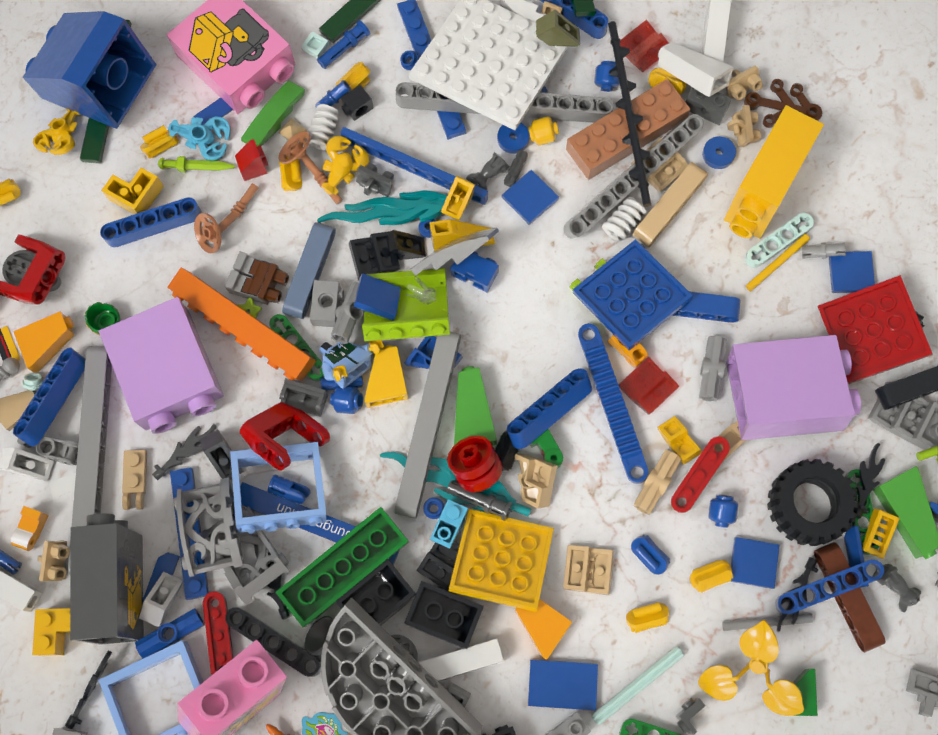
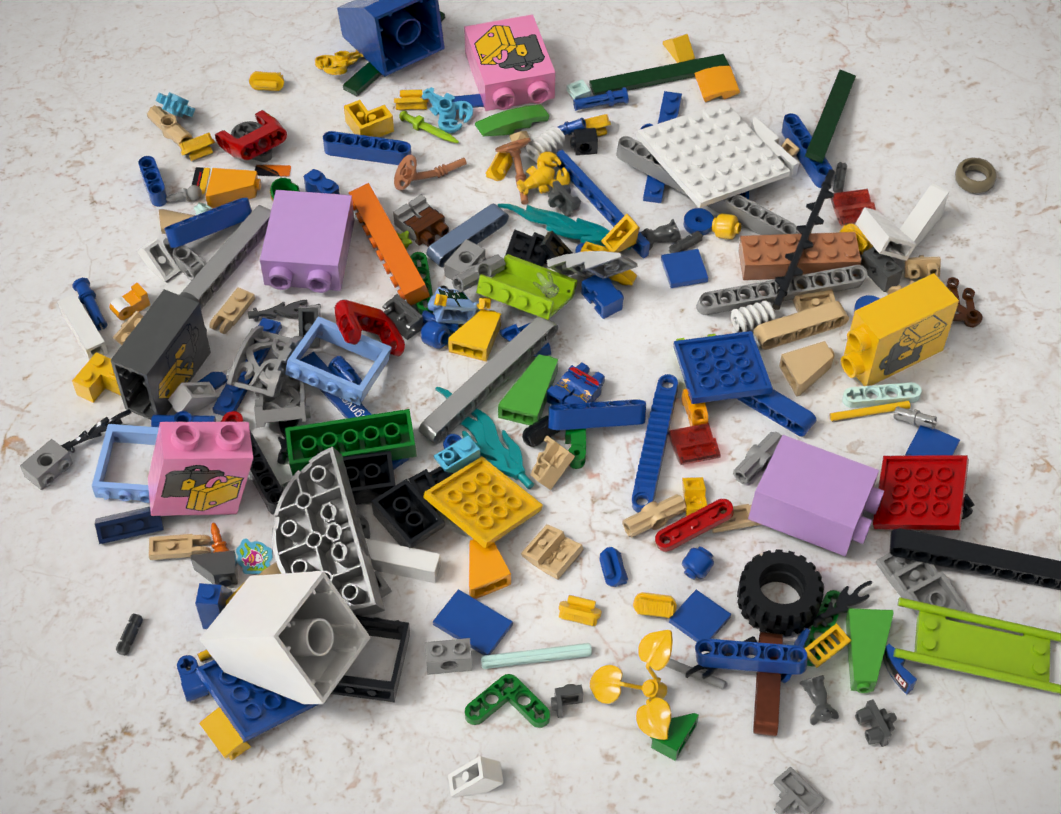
camera: 25 degrees right, 20 degrees down
(71, 295) = (273, 170): none -> sticker
(136, 294) = (317, 183): none -> blue brick
(251, 161) = (472, 141): red slope -> none
(377, 297) = (508, 269): blue tile -> none
(475, 463) = (506, 418): red wheel -> none
(489, 503) = (499, 457): dark grey pin -> none
(511, 381) = (576, 386): none -> blue hips
(557, 30) = (780, 155): olive slope -> none
(603, 78) = (802, 213): blue head -> none
(612, 15) = (839, 177): none -> dark grey axle
(699, 247) = (806, 365): none -> tan slope

